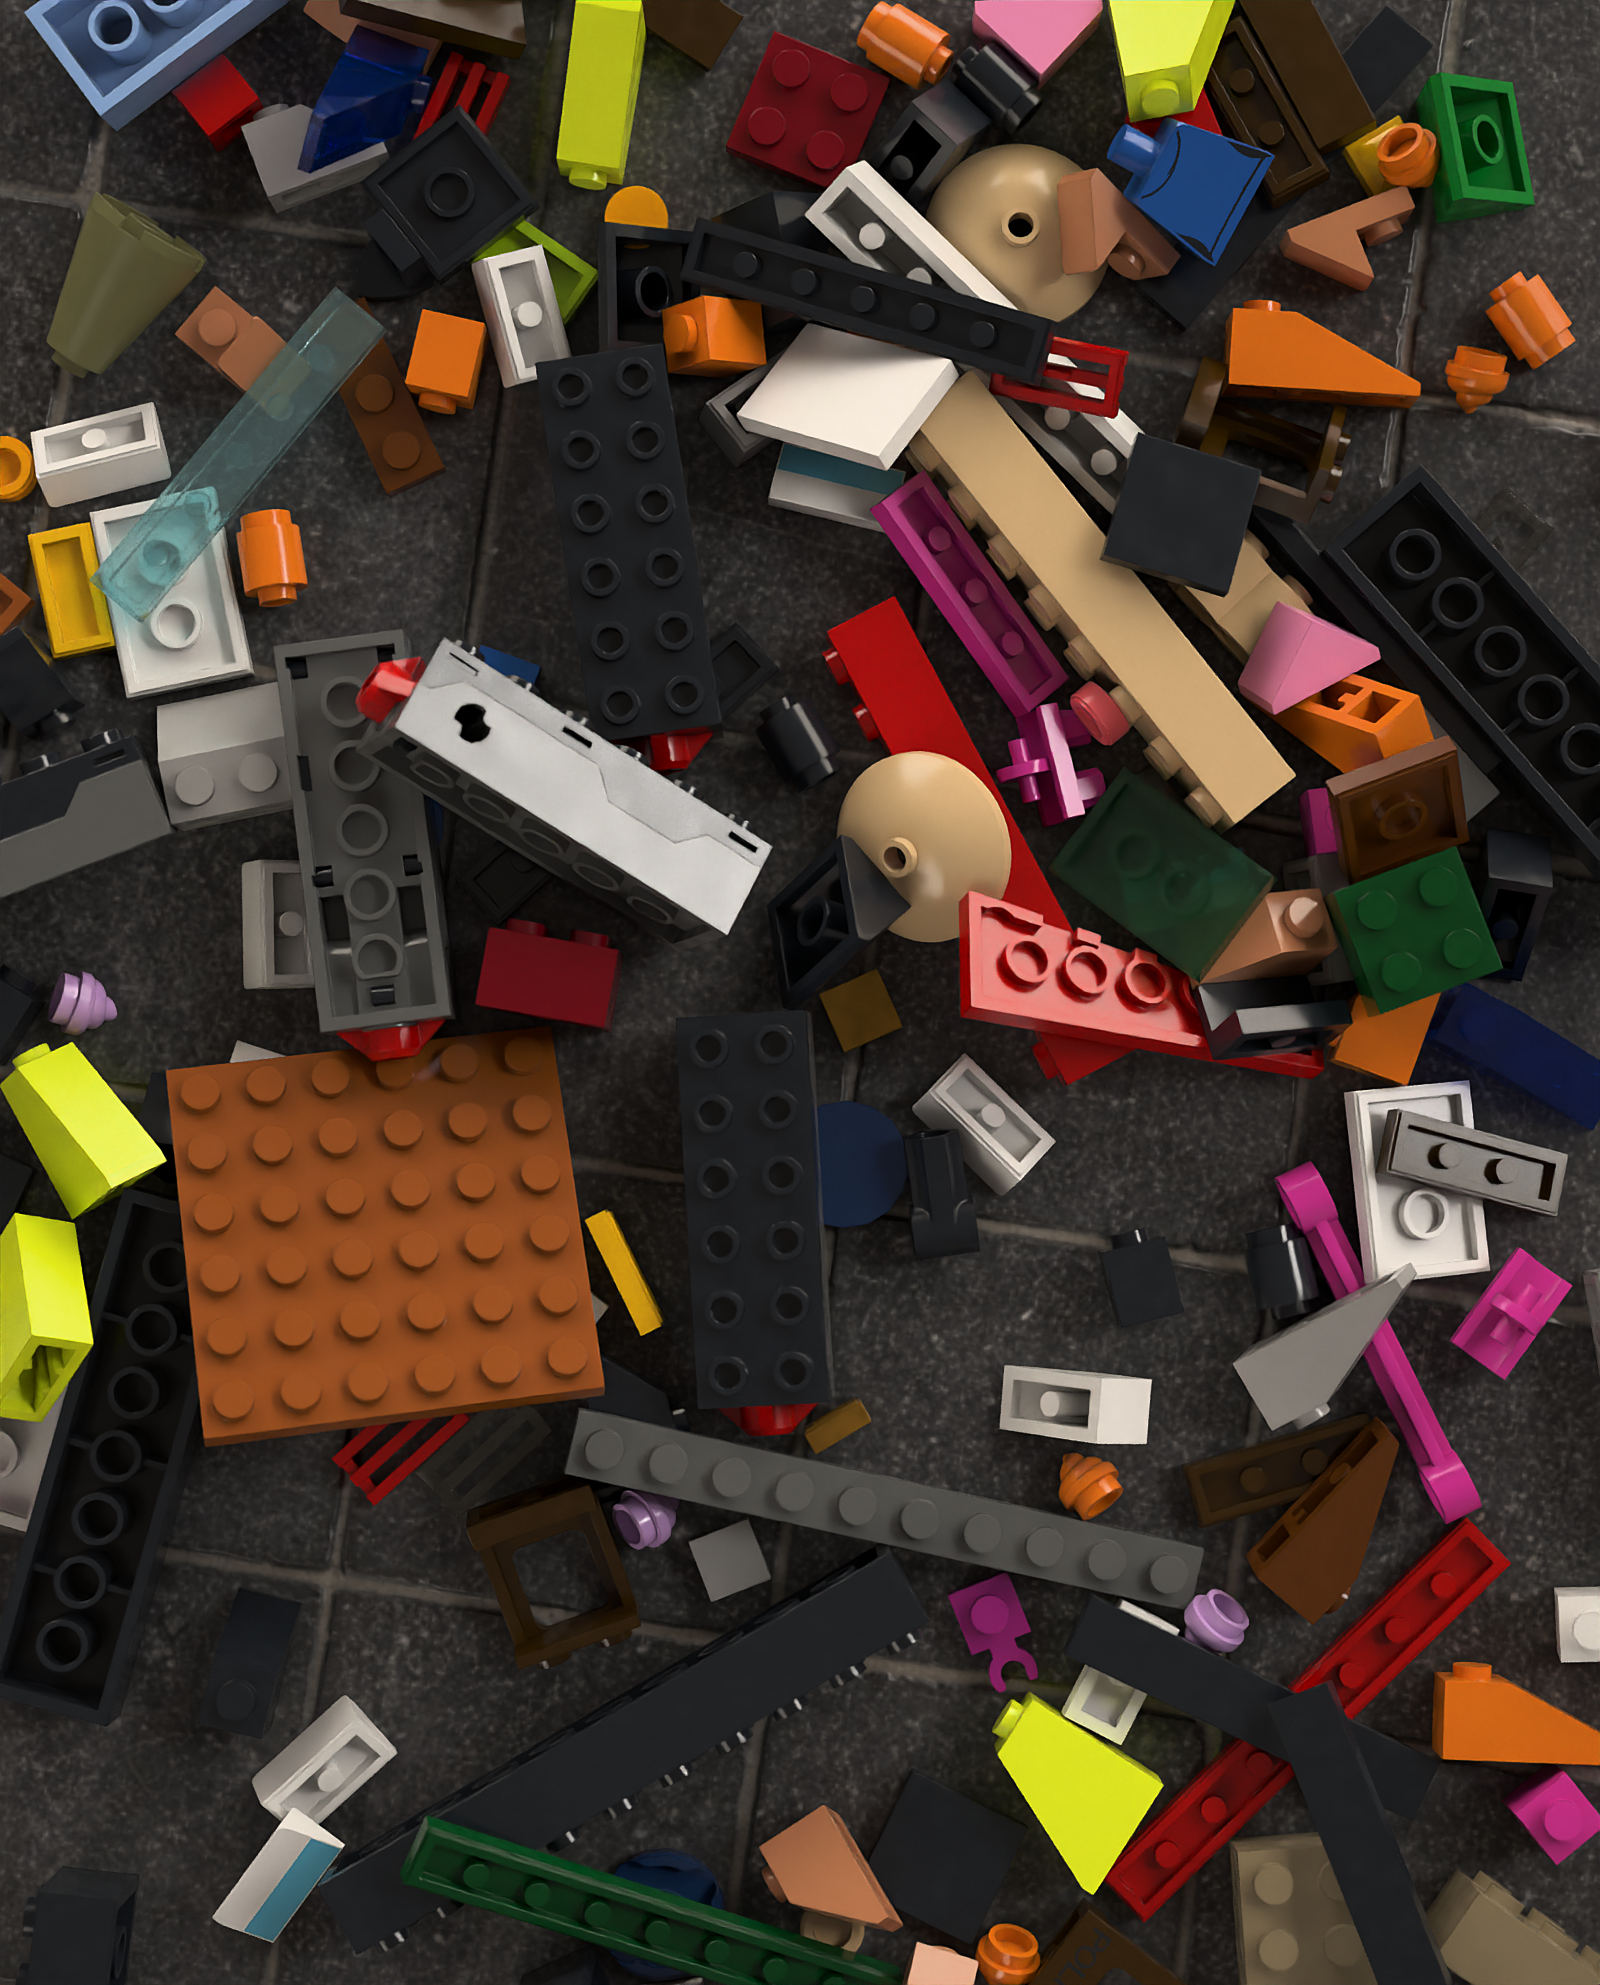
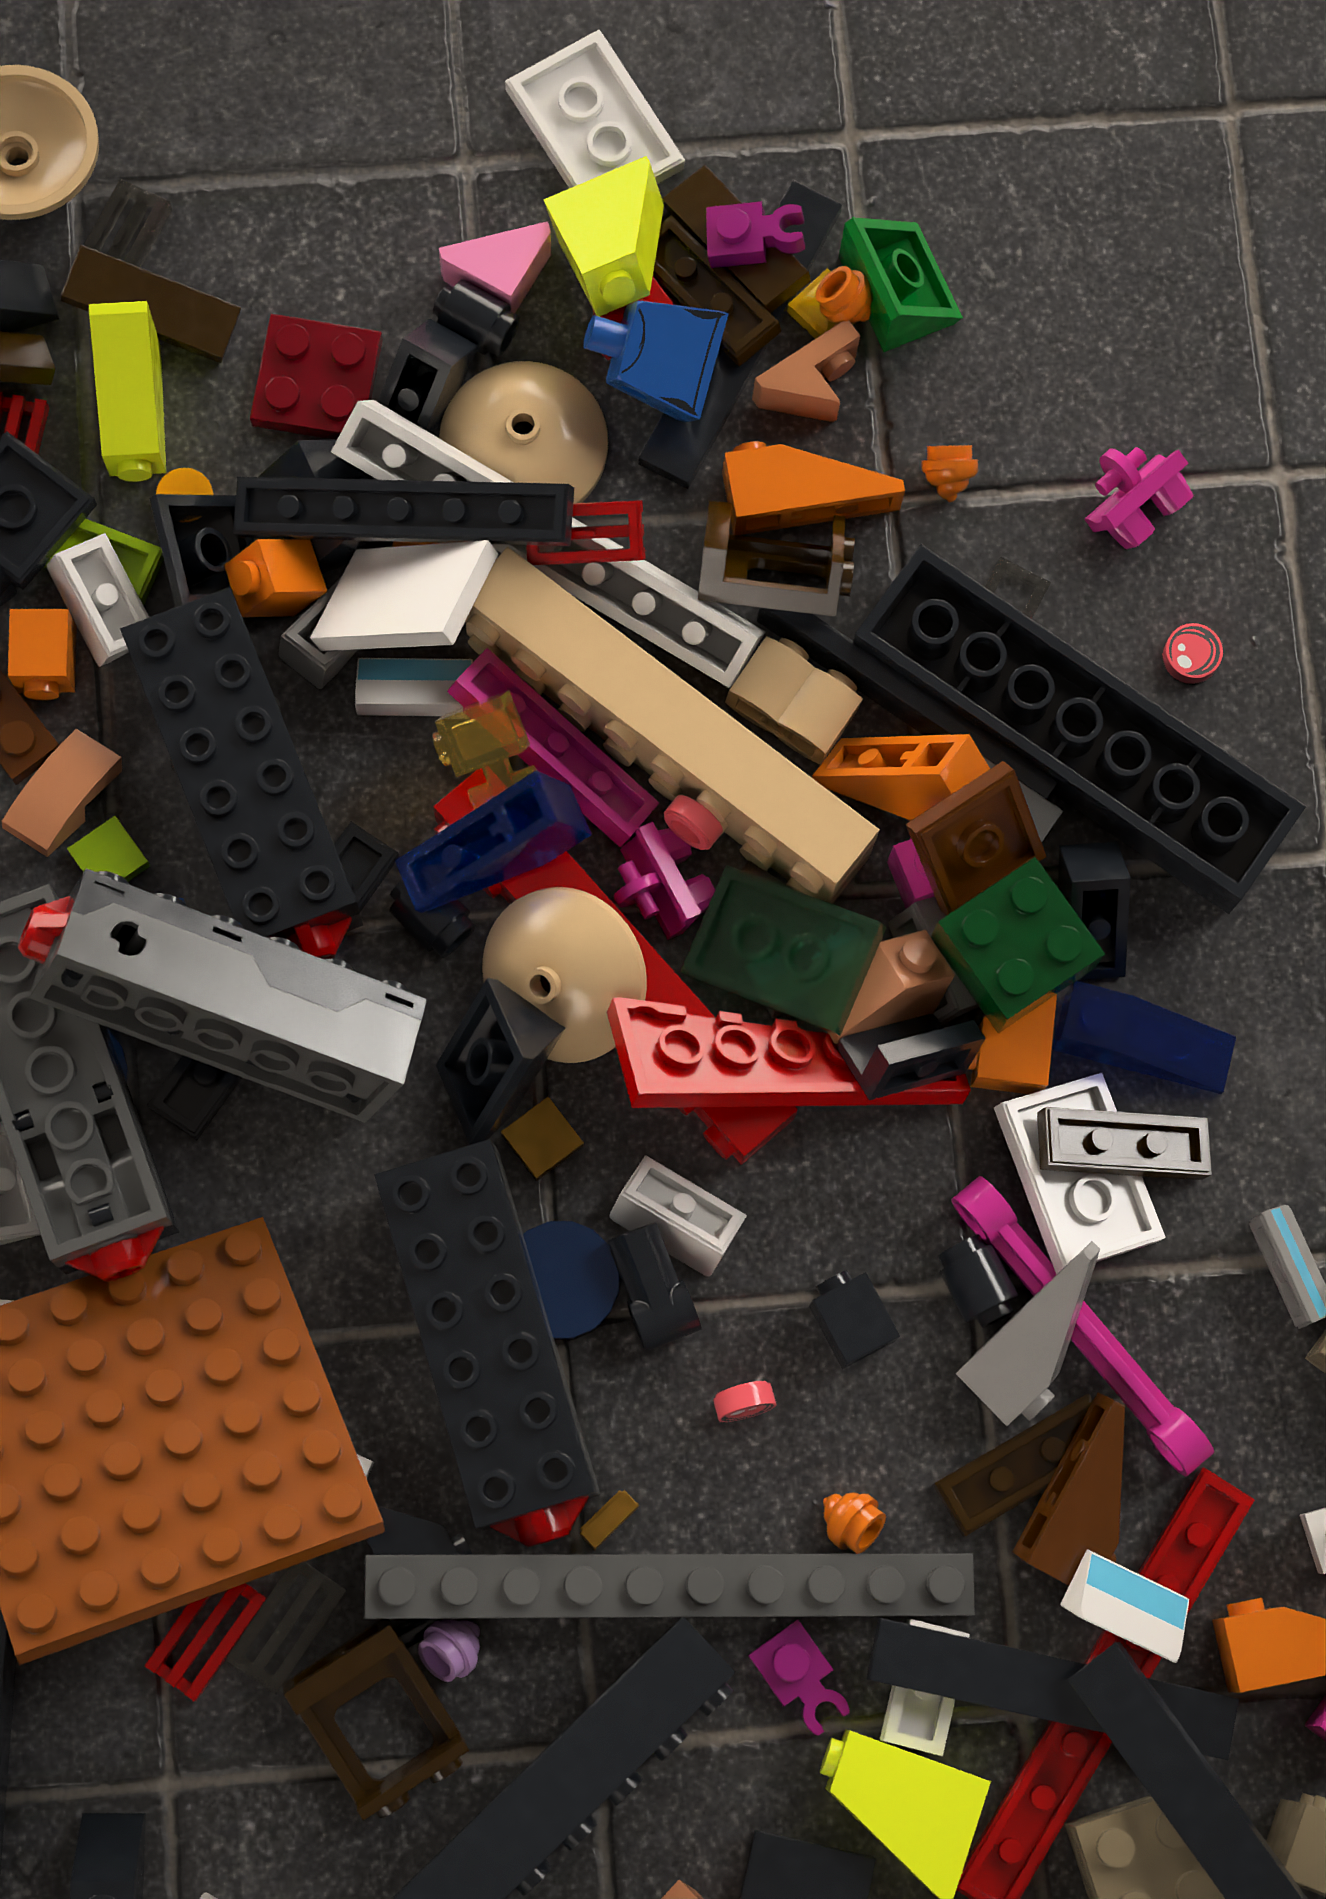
camera: 20 degrees left, 10 degrees down
(434, 519) = (57, 793): none -> nougat slope
(471, 601) = (109, 850): none -> lime tile
(550, 976) = (251, 1167): dark red brick -> none
(625, 1271) = (381, 1423): yellow tile -> none
(729, 1559) = (538, 1671): light grey tile -> none
(882, 691) = (495, 842): none -> clear blue slope
(898, 575) = (483, 738): none -> clear yellow brick
(905, 45) = (387, 300): orange brick -> none
(1006, 1336) = (744, 1401): none -> coral tile
(1075, 1405) = (822, 1447): white slope -> none
(1104, 225) = (595, 406): nougat slope -> none
(1181, 515) = (721, 628): black tile -> none
(1215, 1621) = (1000, 1619): lavender plate -> none
(1300, 657) = (857, 732): bright pink slope -> none
(1314, 57) = (743, 232): none -> magenta plate
(1349, 1645) = (1128, 1605): none -> white slope
(1510, 1313) = (1193, 1269): dark pink hips -> none
(1530, 319) = (983, 410): orange brick -> none

